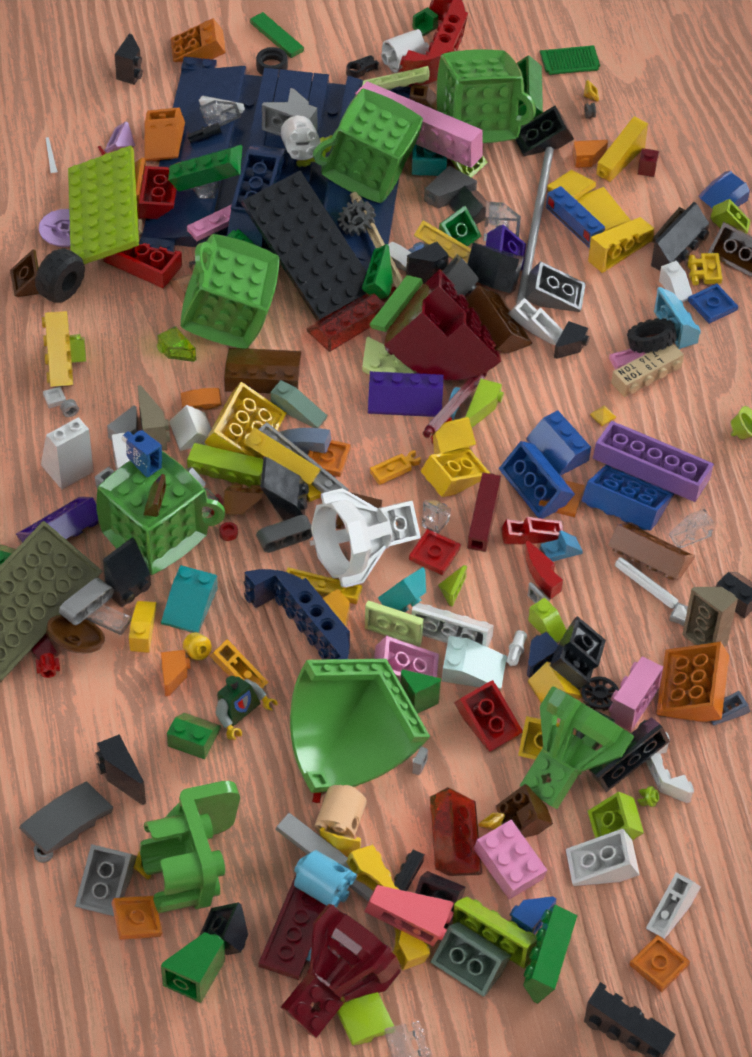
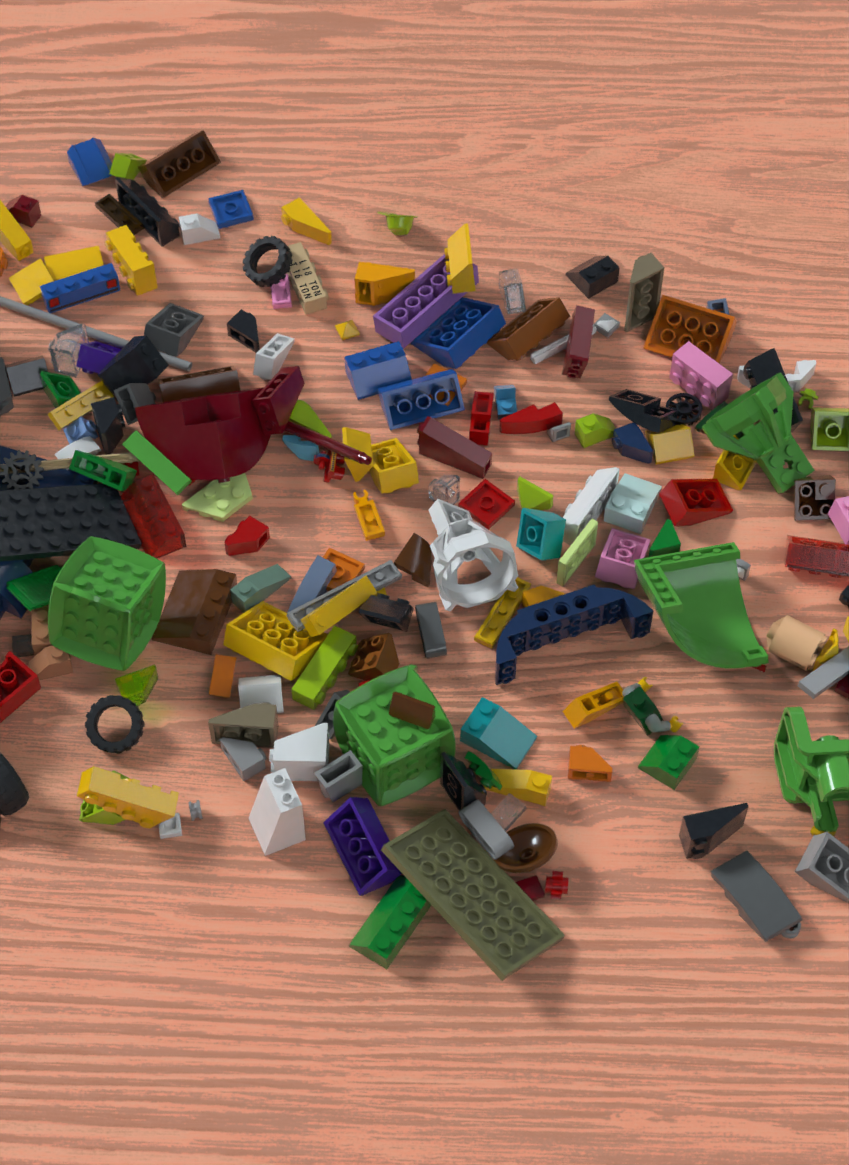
camera: 75 degrees left, 5 degrees up
(139, 347) = (93, 718): none -> black tyre
(143, 452) = (354, 707): blue torso -> none
(146, 593) = (487, 776): none -> green slope
(197, 646) = (563, 735): yellow head -> none
(345, 386) = (247, 538): none -> red slope
(405, 394) = (275, 486): dark purple slope -> none
(487, 367) = (278, 399): none -> dark red slope
(492, 821) = (814, 524): yellow slope -> none
(516, 648) = (620, 461): white axle -> none
(536, 321) = (211, 353): white slope -> none
(548, 364) = (271, 356): none -> white slope
(641, 586) = (578, 342): none -> dark red slope
(655, 418) = (380, 283): none -> light orange slope
(671, 308) = (237, 240): medium azure slope -> none
(690, 468) = (460, 261): none -> yellow slope
(710, 271) = (186, 197): yellow plate -> none
(719, 353) = (305, 221): none -> yellow slope

